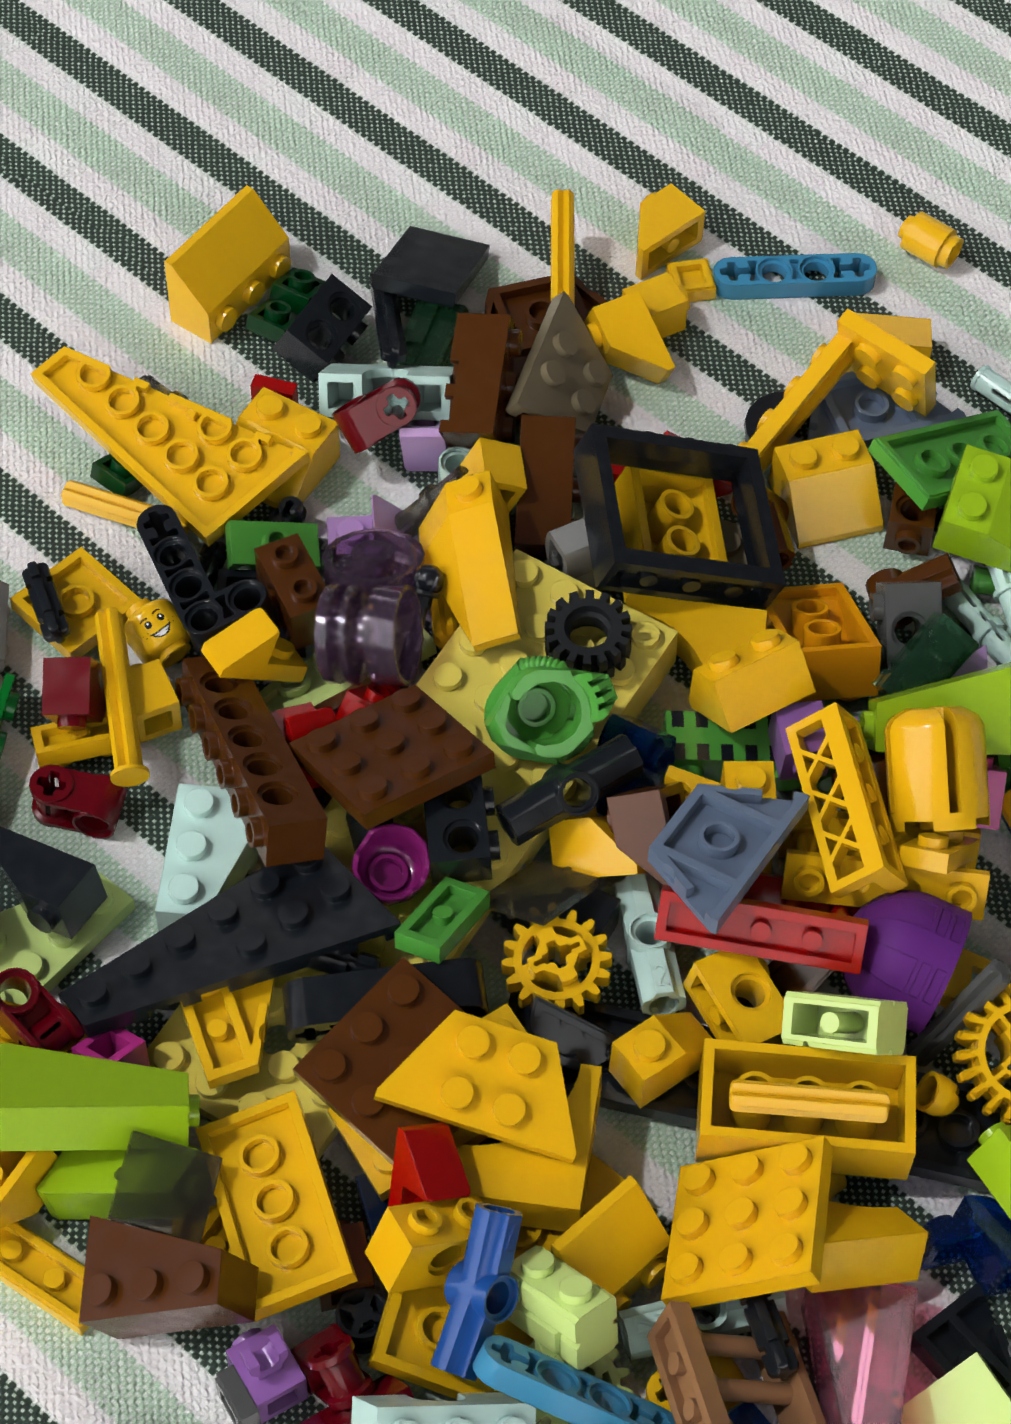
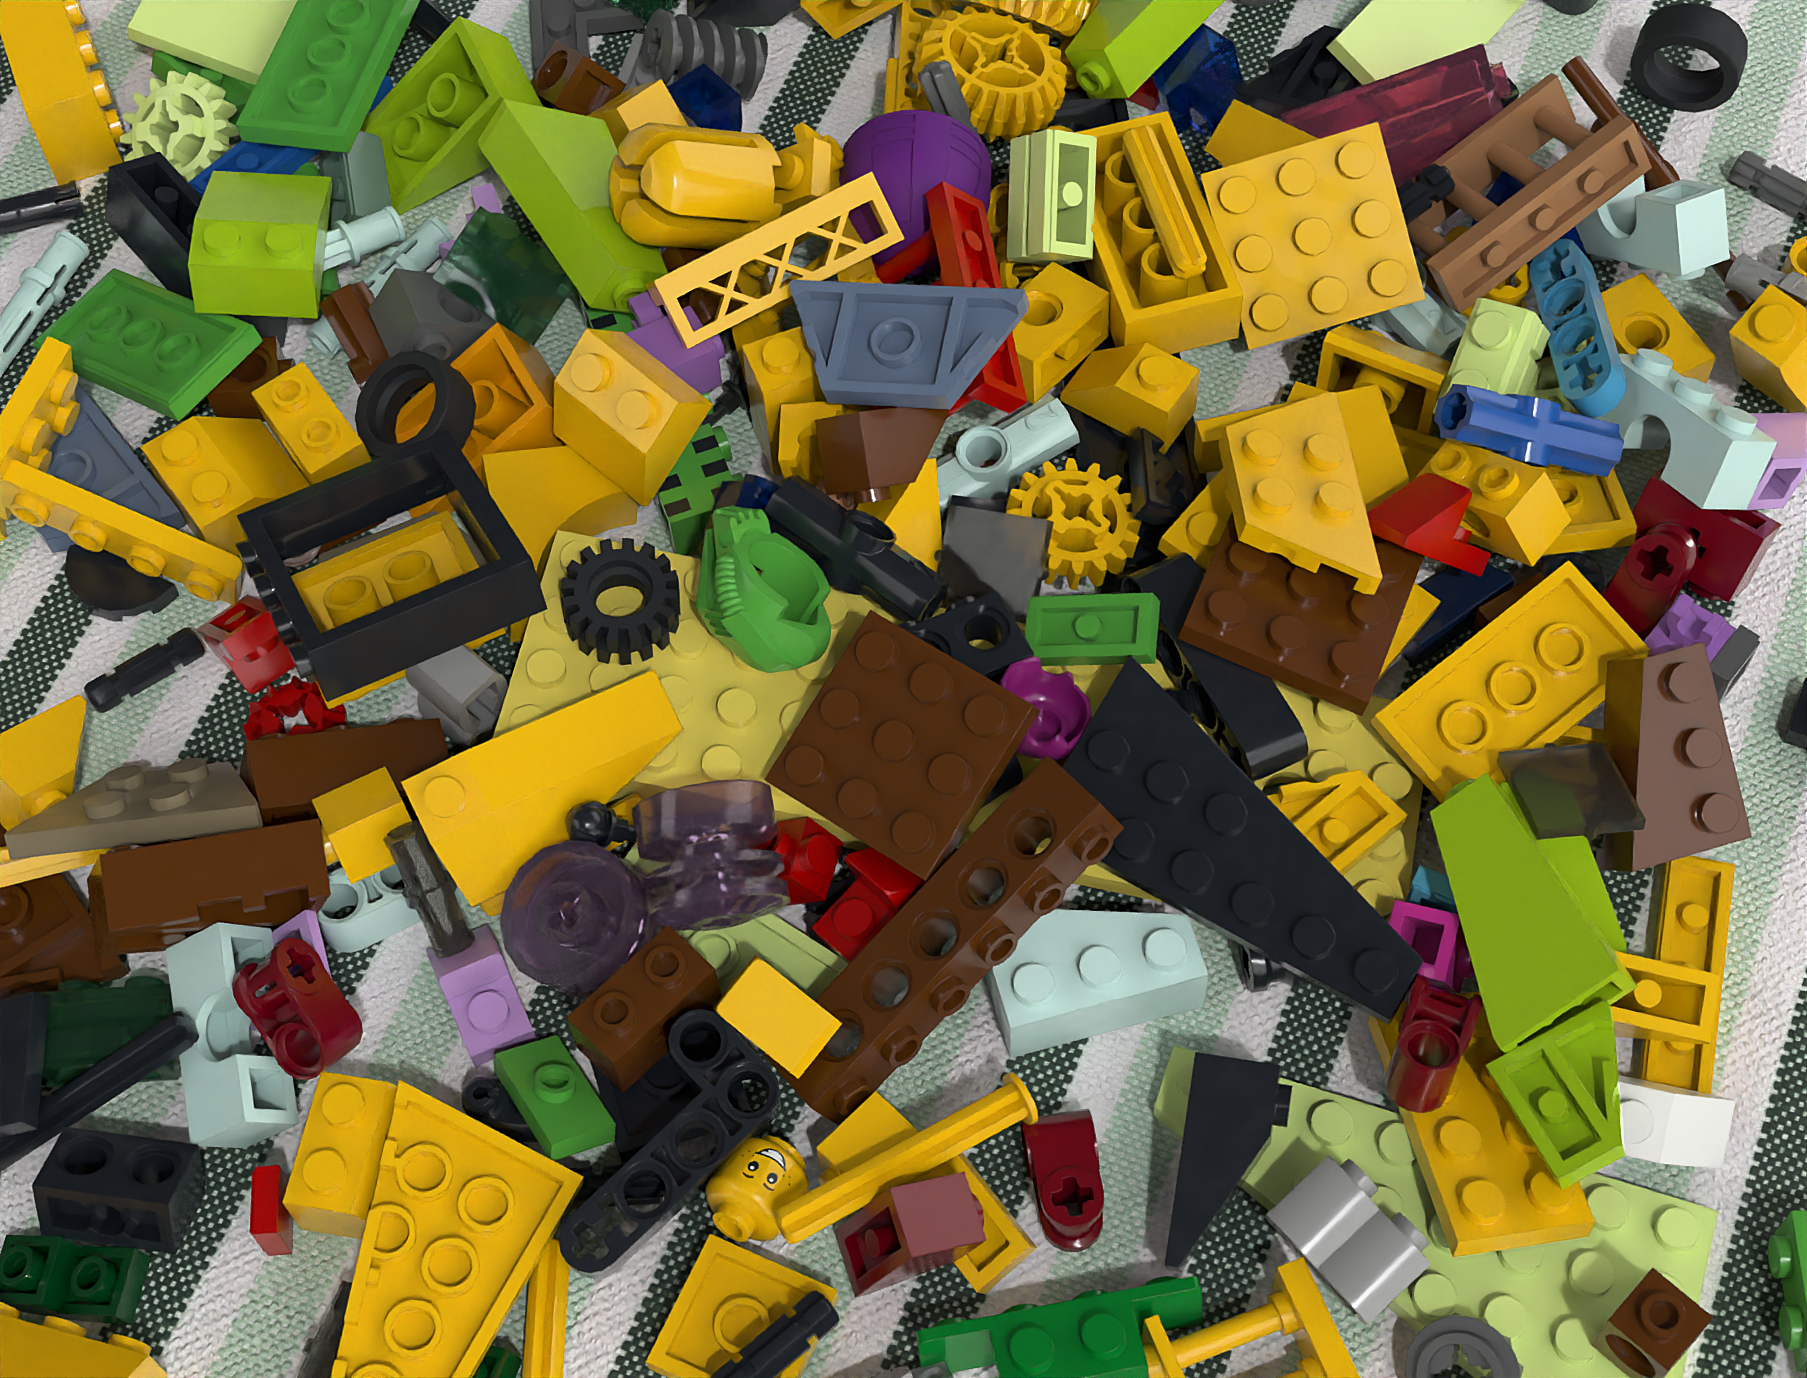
camera: 105 degrees left, 5 degrees up
(692, 412) = (144, 670): none -> black axle
(828, 589) = (392, 385): none -> black tyre
(843, 541) = (309, 425): none -> yellow brick

